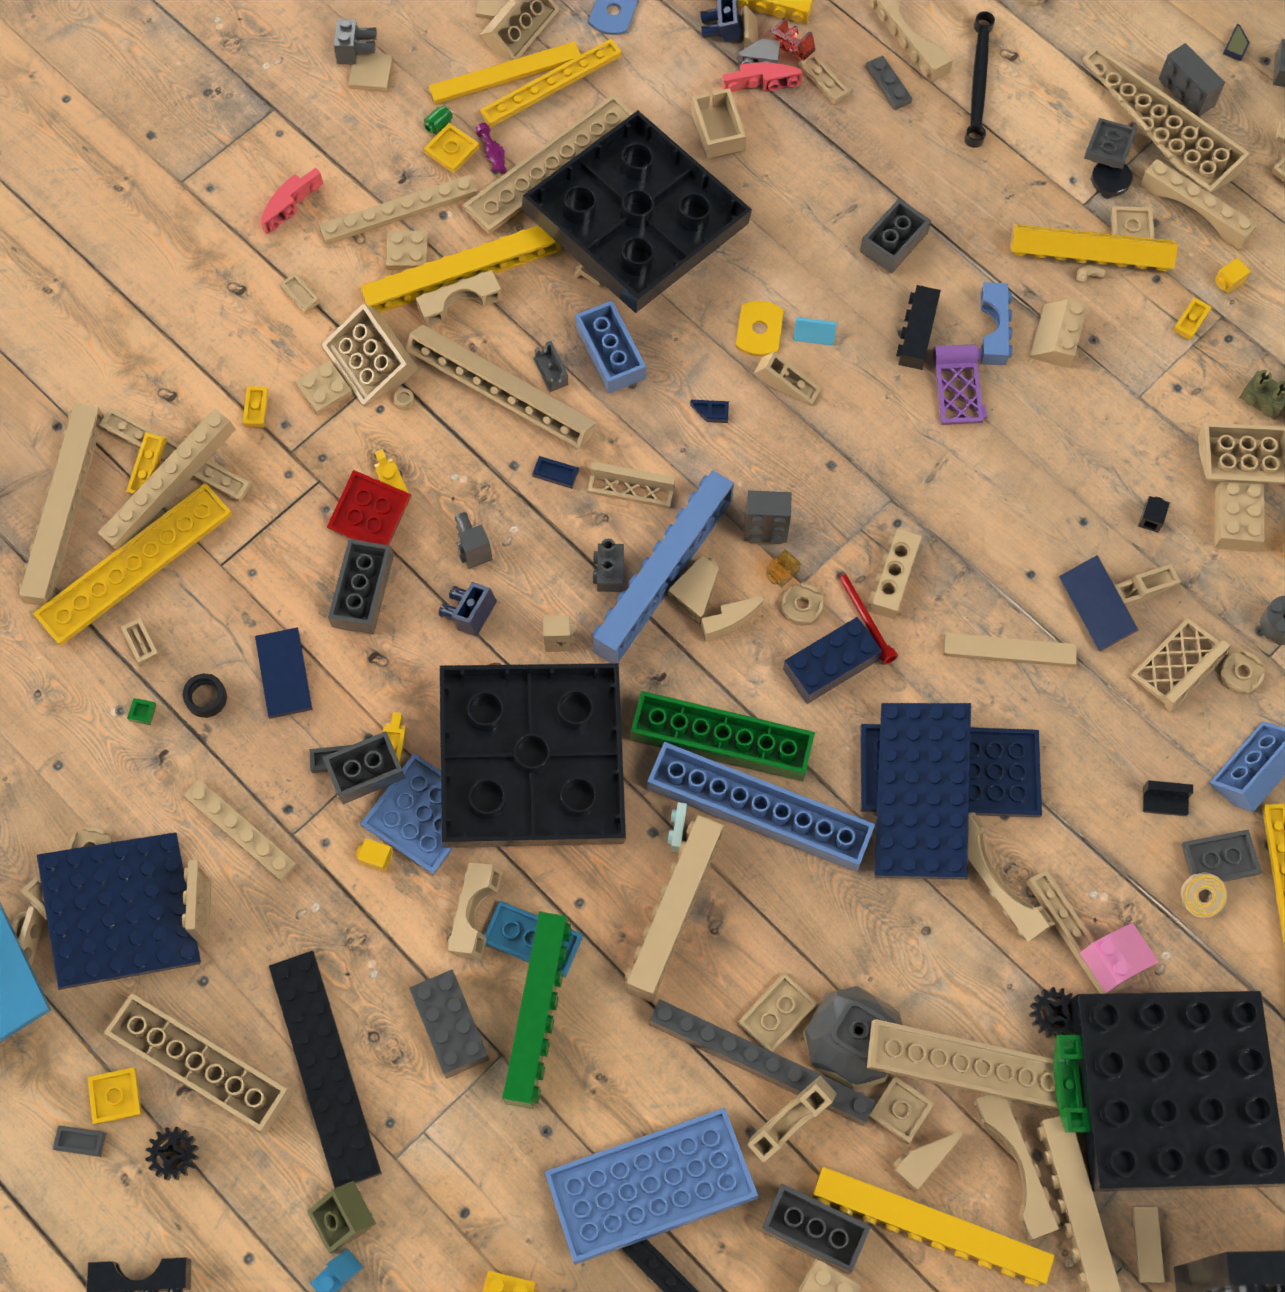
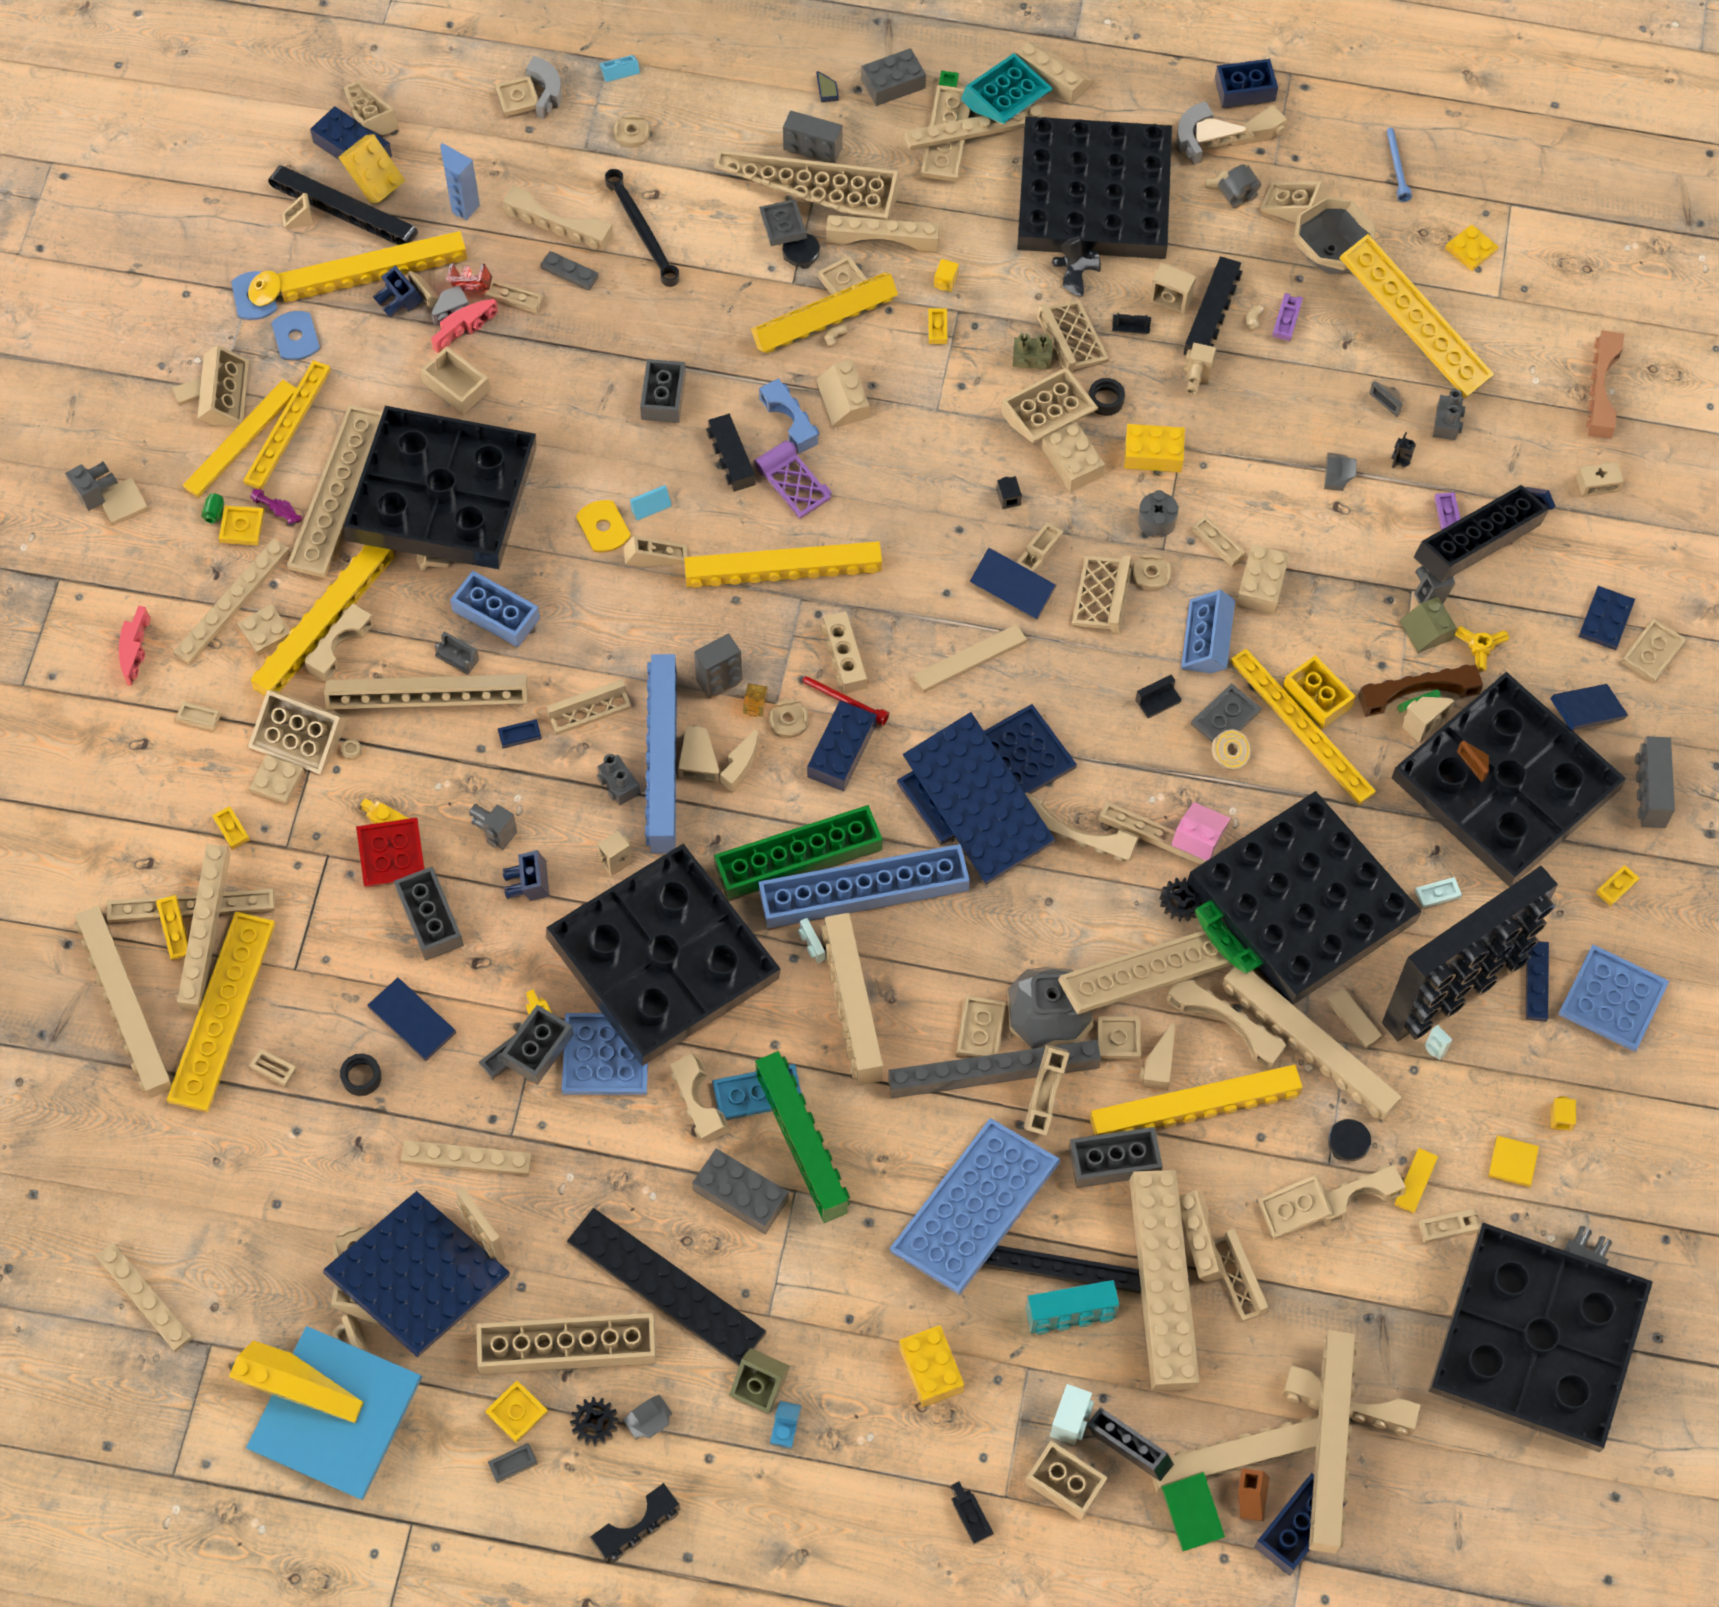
camera: 35 degrees left, 5 degrees down
(141, 711) = (317, 1118): green plate -> none
(222, 1184) = (648, 1418): none -> dark grey slope
(374, 855) = (590, 1108): yellow brick -> none
(711, 410) = (611, 612): dark blue tile -> none
(896, 458) = (783, 564): none -> yellow brick

